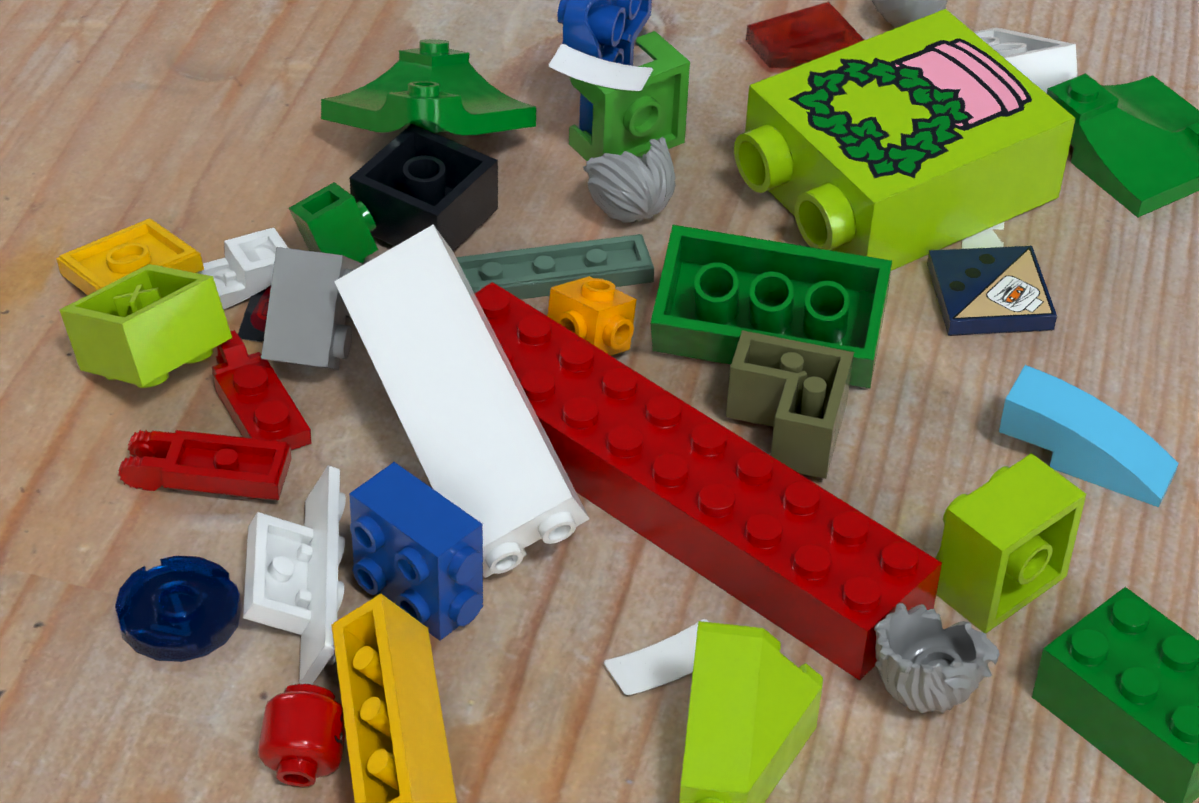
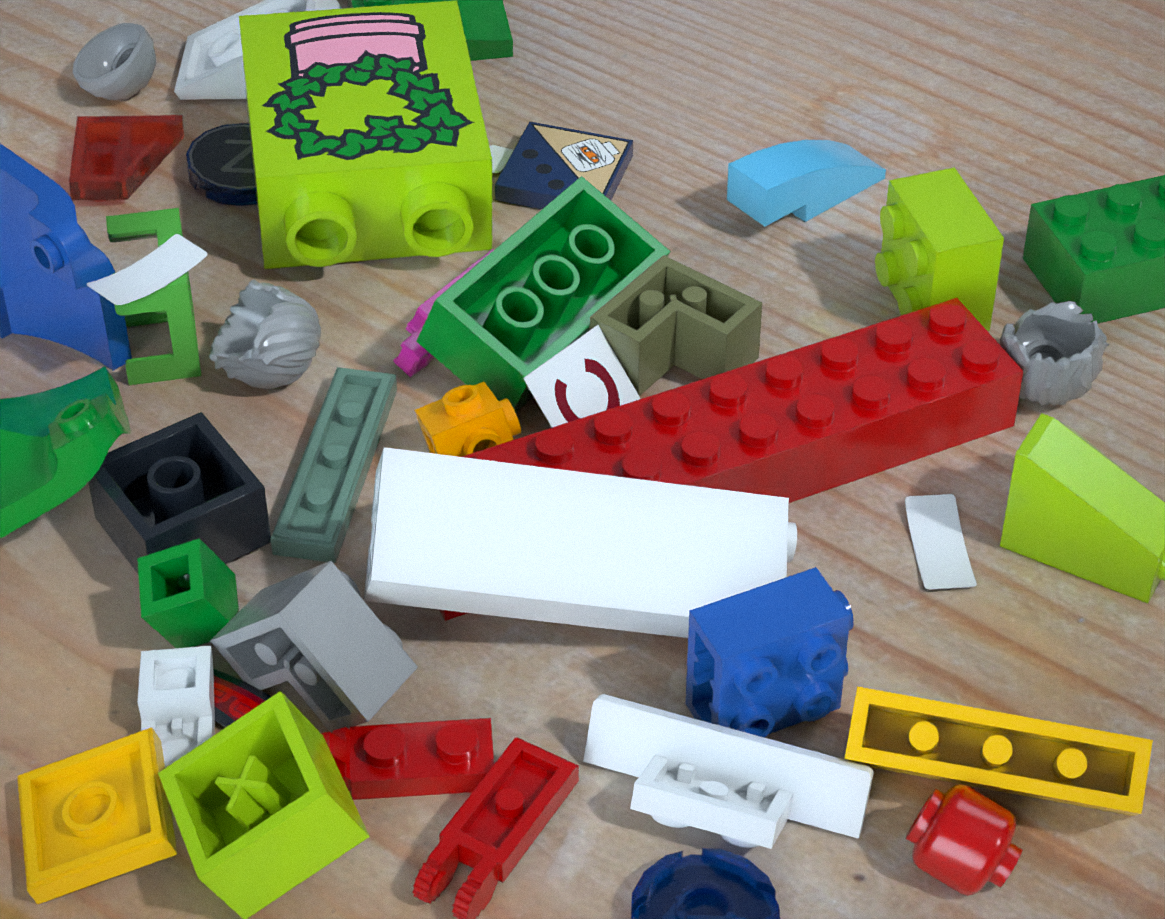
camera: 65 degrees left, 0 degrees up
(686, 363) = (581, 380): none -> white sticker

